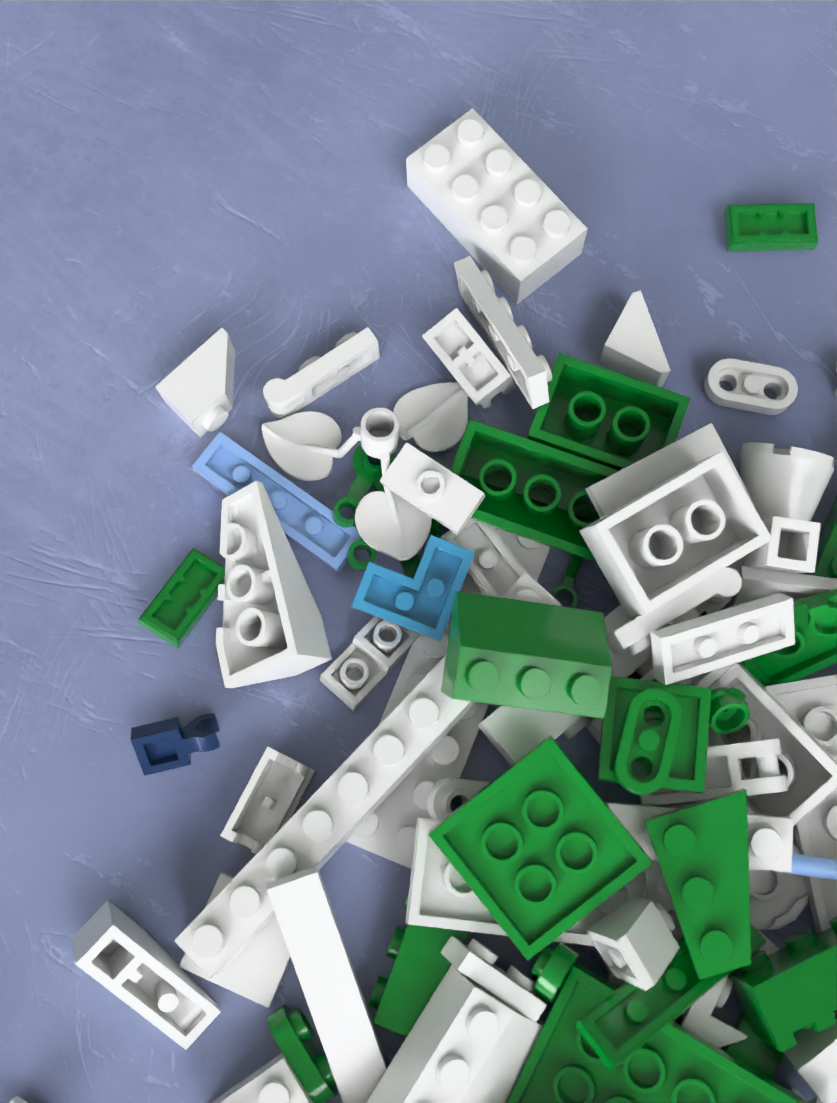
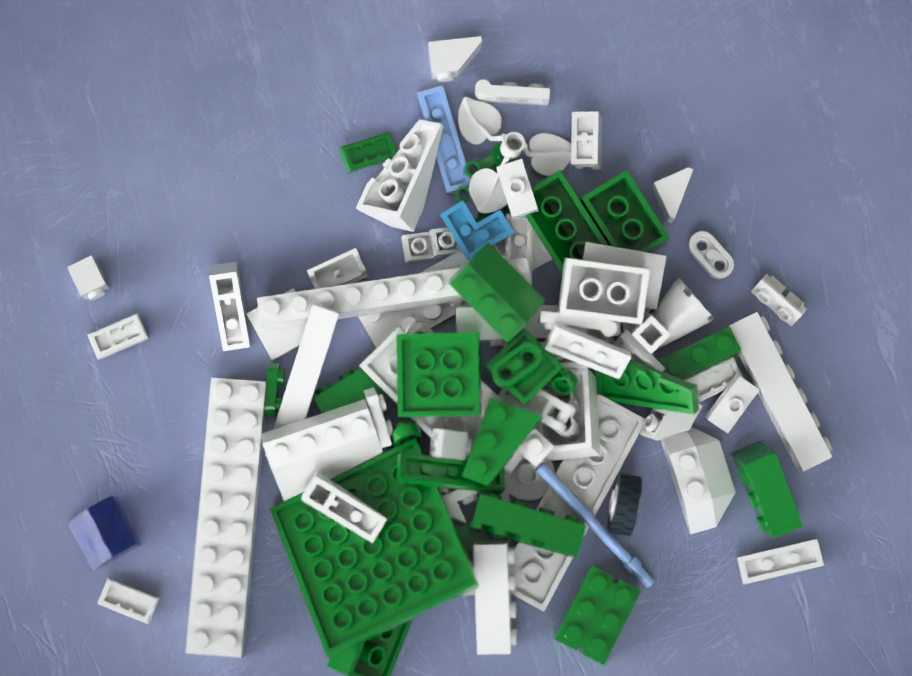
camera: 30 degrees right, 5 degrees up
(169, 746) = (312, 214): dark blue plate -> none
(495, 205) = (661, 72): white brick -> none
(508, 340) = (609, 147): white plate -> none
(569, 580) = (548, 281): green hand -> none
(770, 227) = (788, 185): green plate -> none

